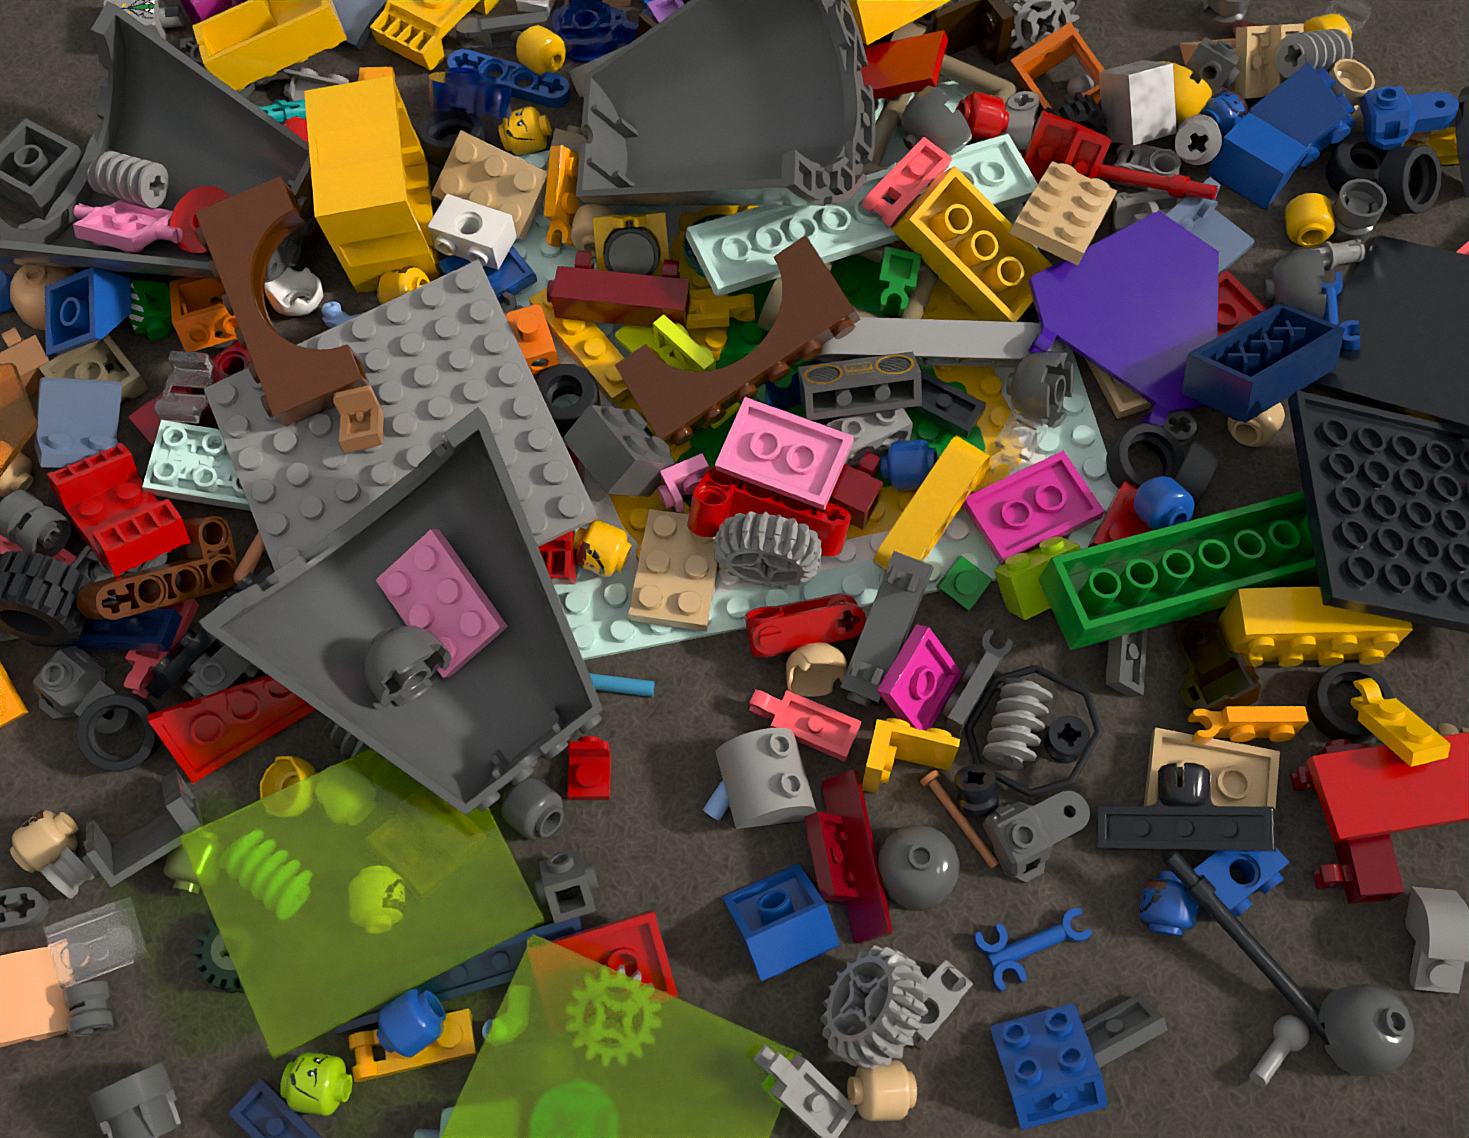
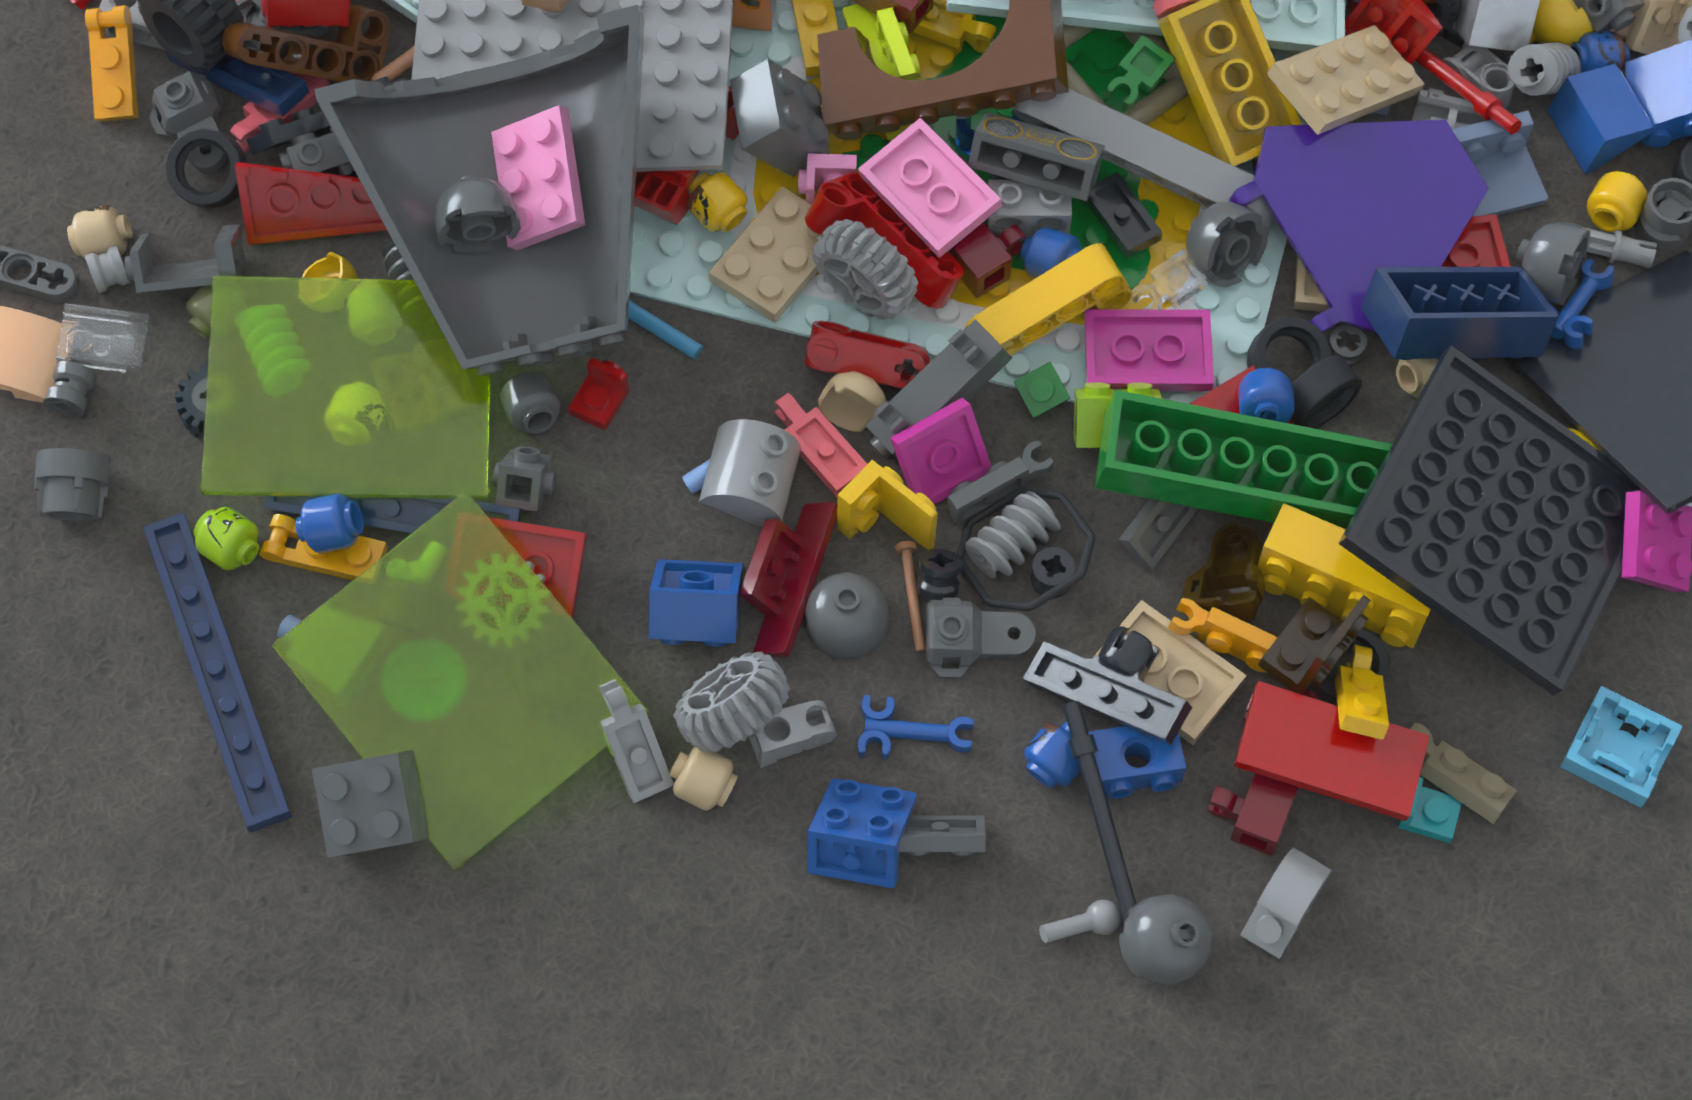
camera: 25 degrees right, 0 degrees up
(563, 380) = (761, 29): black tyre -> none
(1335, 701) = (1312, 644): none -> dark brown bracket

